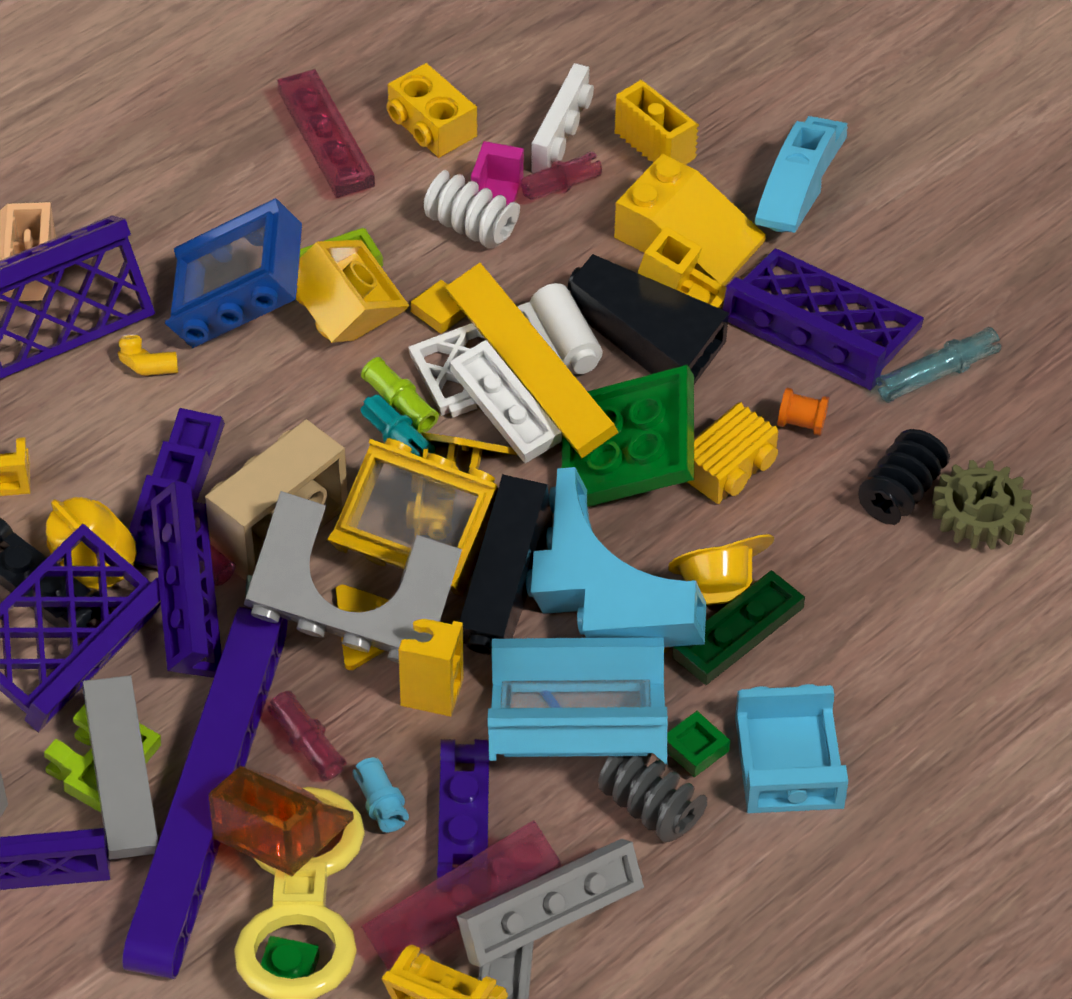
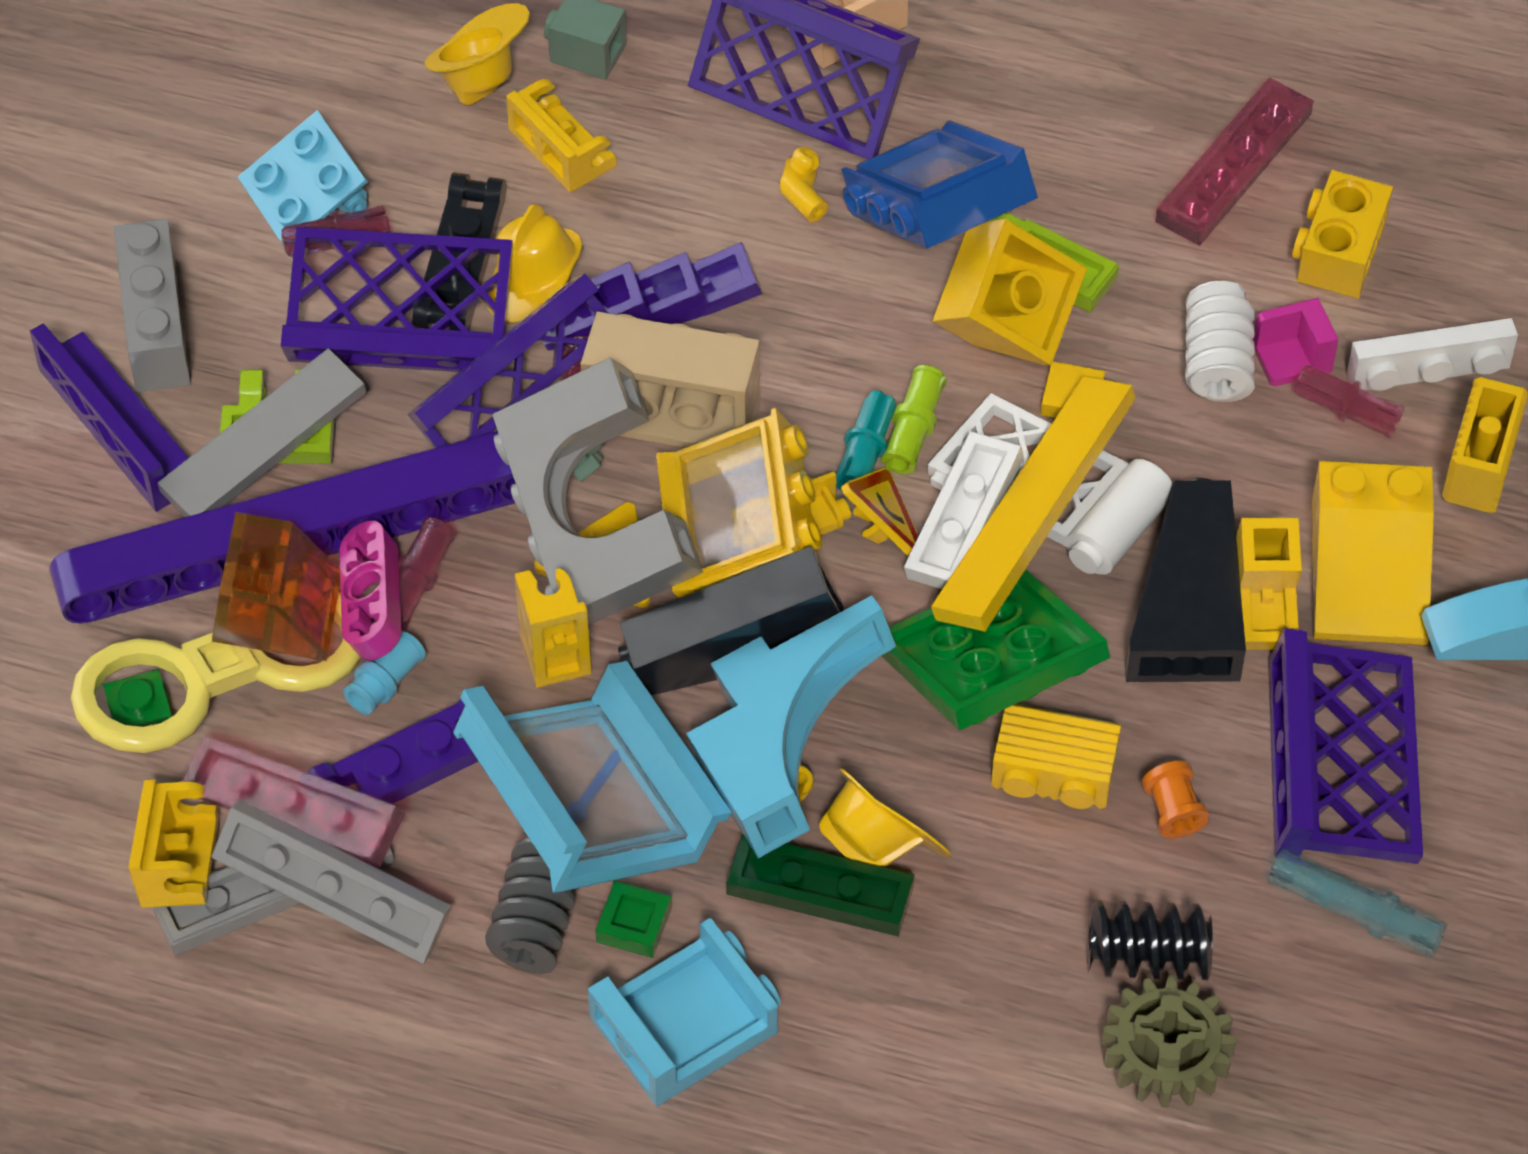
camera: 60 degrees right, 5 degrees up
(323, 778) = (383, 604): none -> dark pink beam

